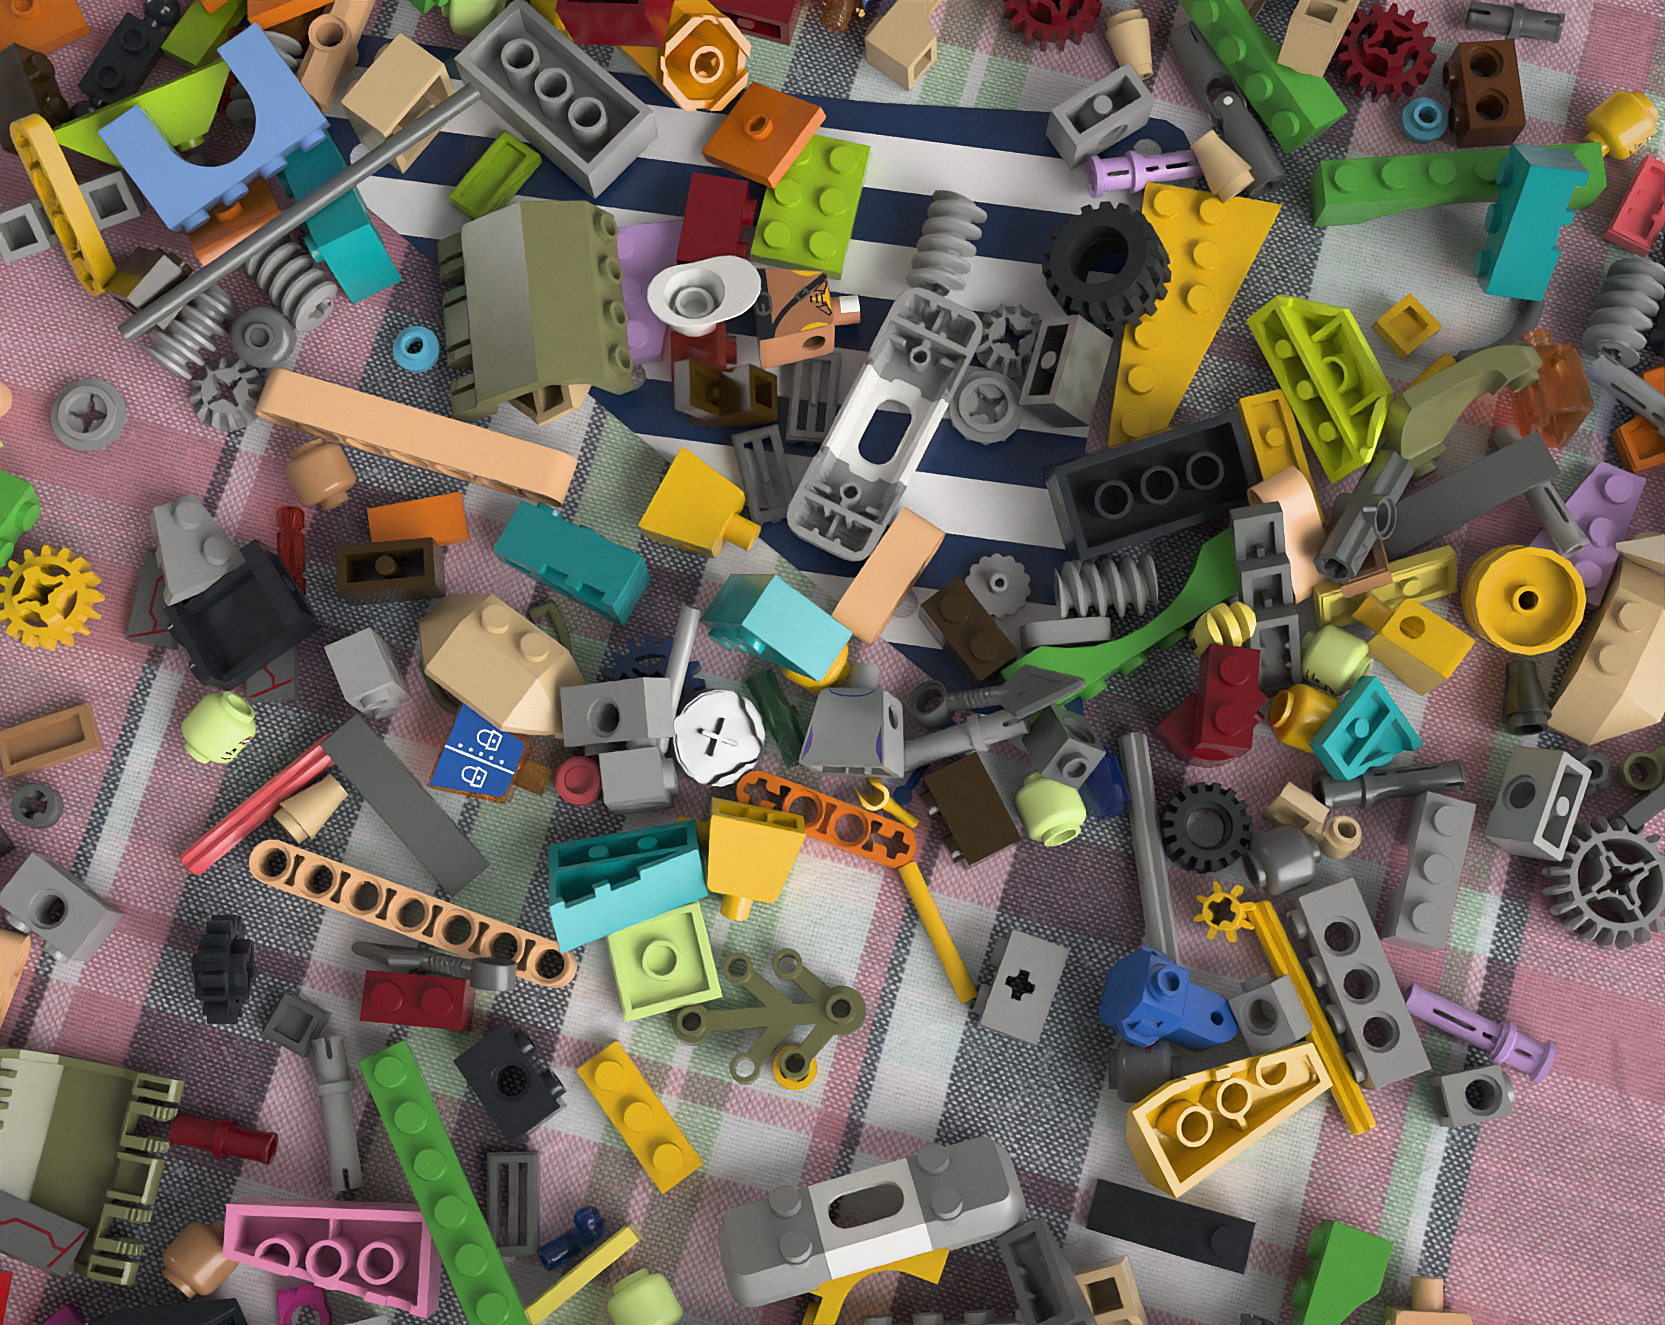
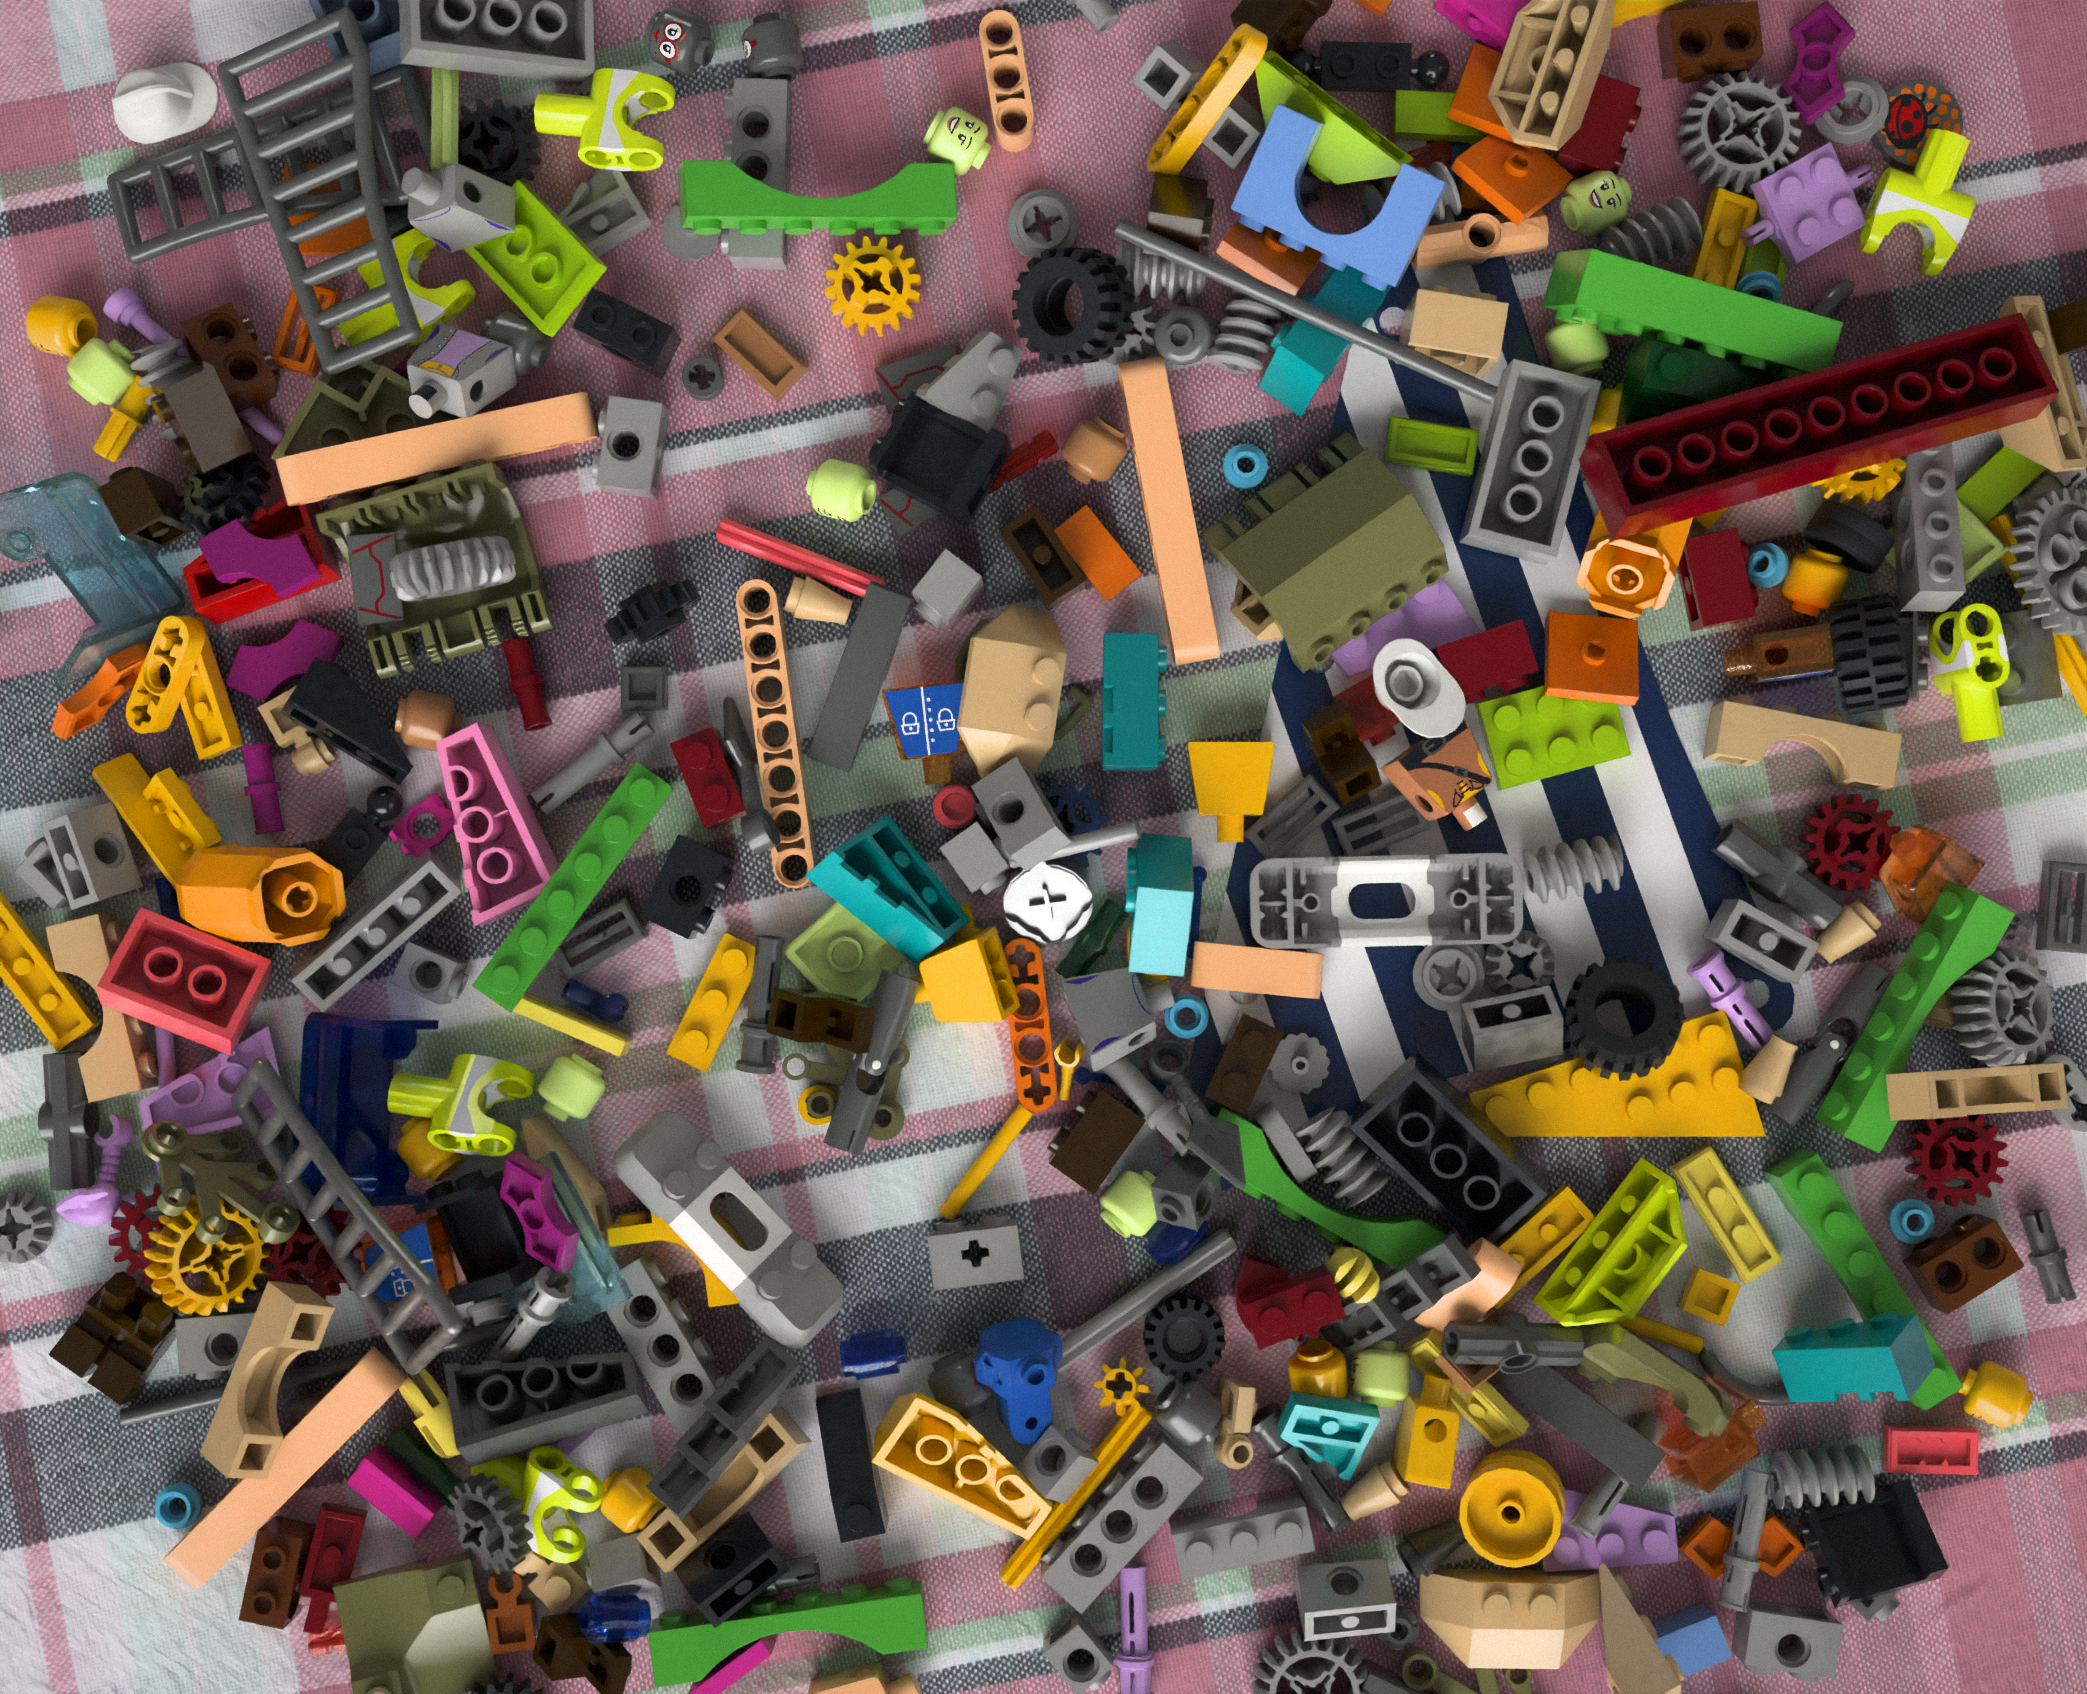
camera: 60 degrees right, 10 degrees up
(63, 1146) = (452, 568): none -> light grey gear
(149, 442) = (1043, 302): none -> black tyre
(686, 1082) = (757, 1043): none -> dark grey pin
(709, 1011) = (821, 1018): none -> dark brown brick
(760, 967) = (856, 1106): none -> dark grey piece
(900, 652) = (1200, 1020): none -> medium azure plate
(1047, 76) = (1778, 874): none -> dark grey piece
(1070, 1143) = (873, 1354): none -> clear blue brick
(1339, 275) = (1726, 1214): none -> light yellow tile
(1445, 724) = (1375, 1491): none -> tan cone

